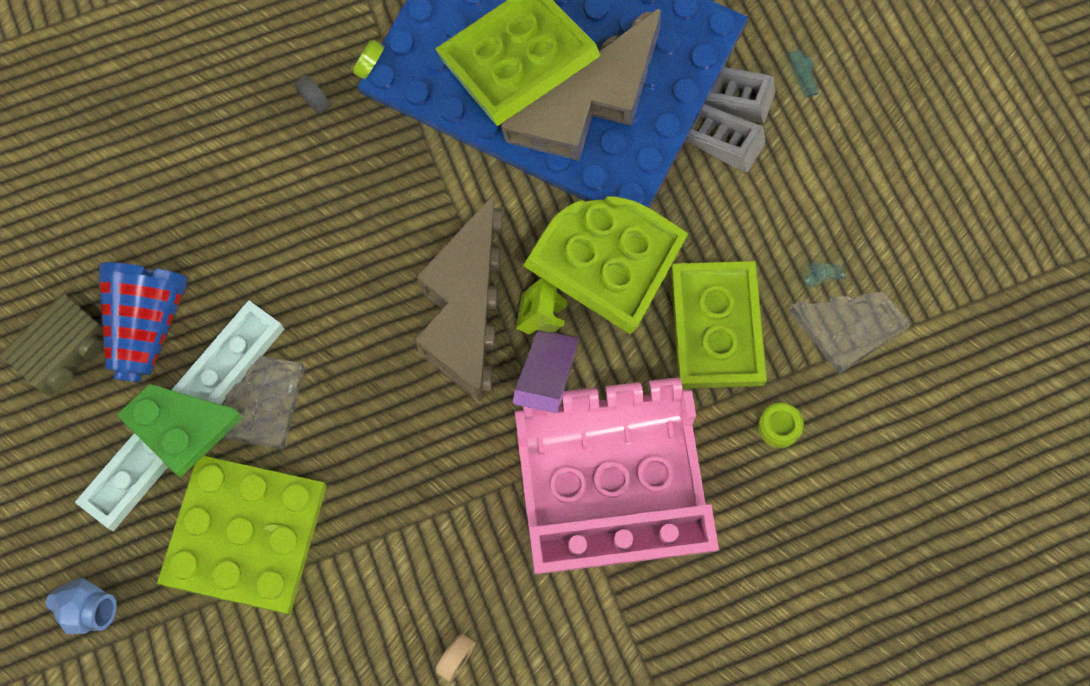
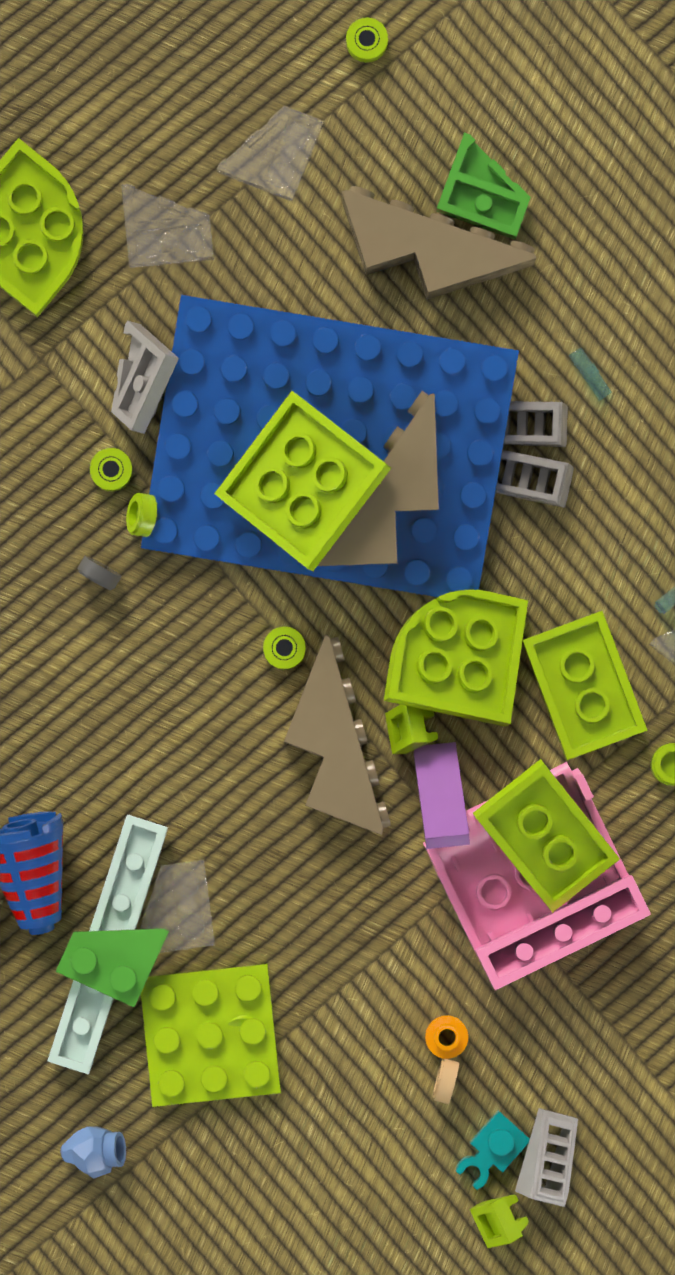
camera: 25 degrees left, 15 degrees up
(358, 22) = (111, 469): none -> lime tile
(451, 208) = (284, 648): none -> lime tile
(478, 627) = (440, 1024): none -> light orange plate
(637, 437) = (546, 835): none -> lime plate

